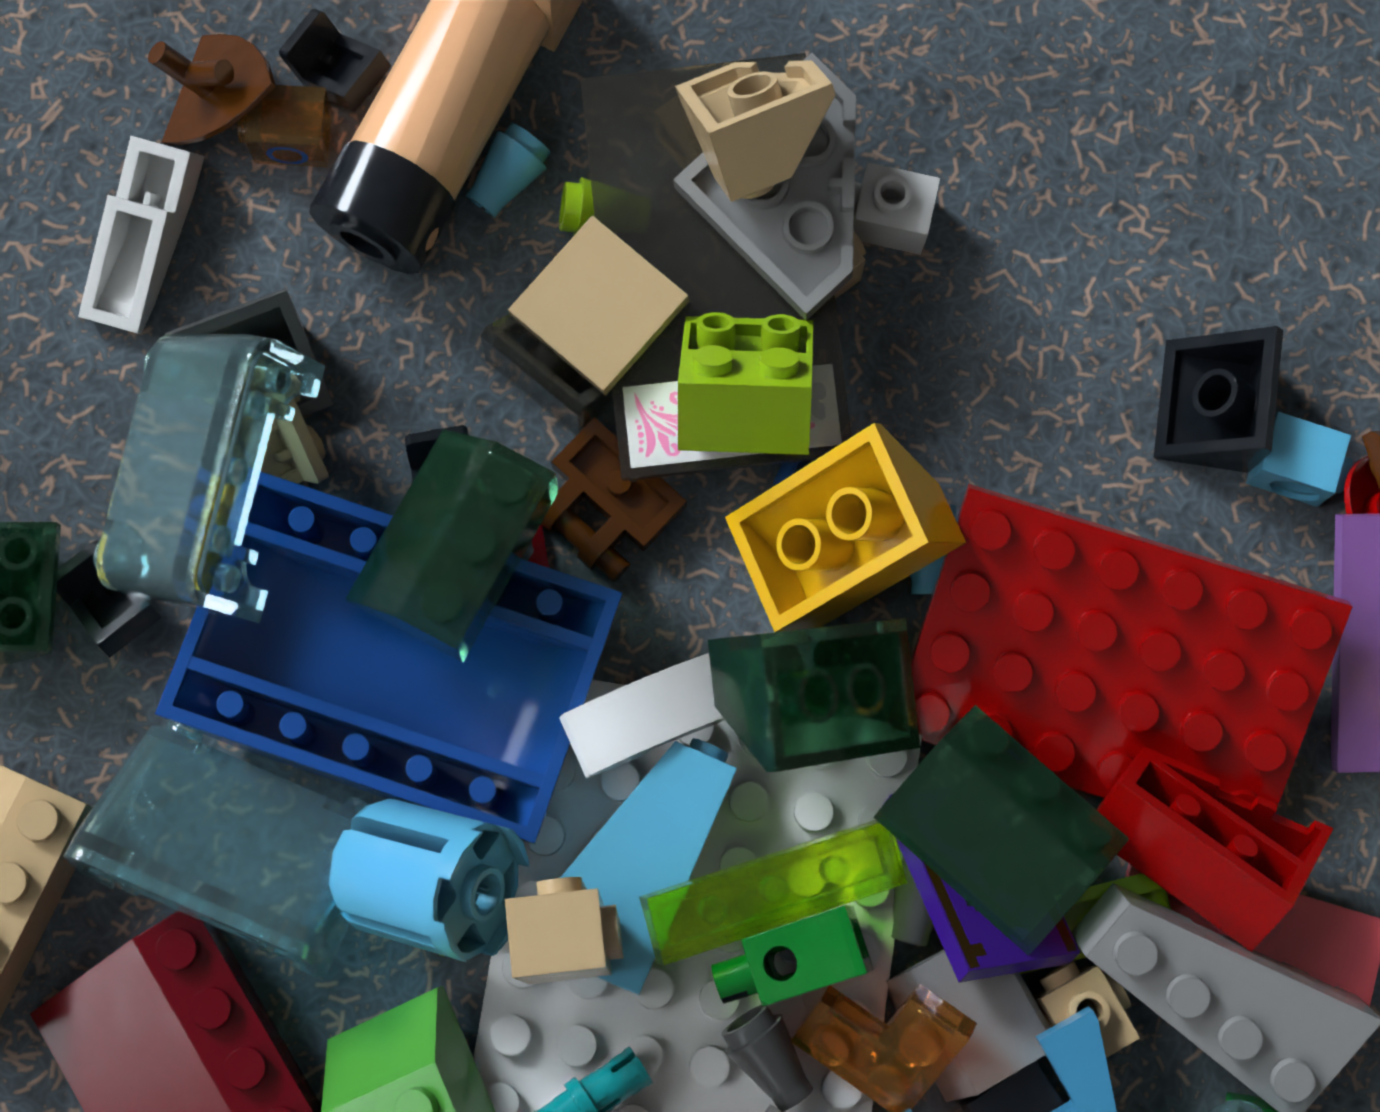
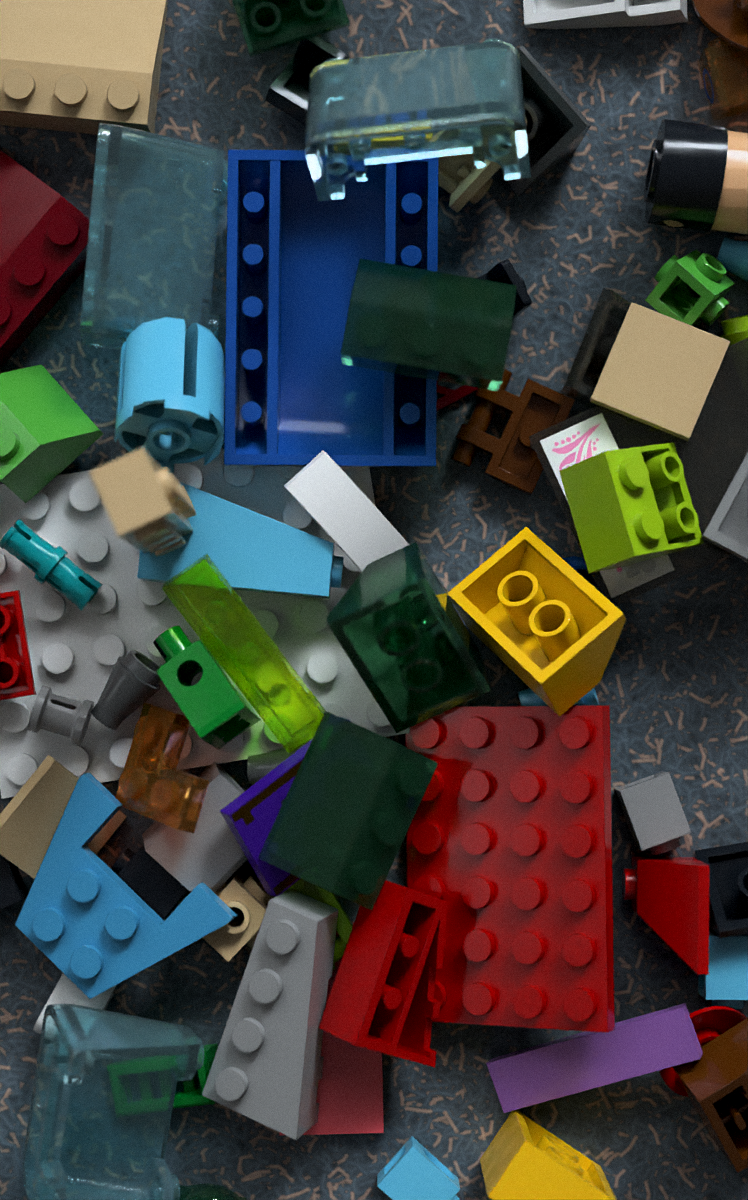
camera: 80 degrees right, 10 degrees up
(515, 267) = (691, 289): none -> bright green brick
(1100, 483) = (653, 813): none -> light grey brick
(1216, 489) = (674, 903): none -> red slope

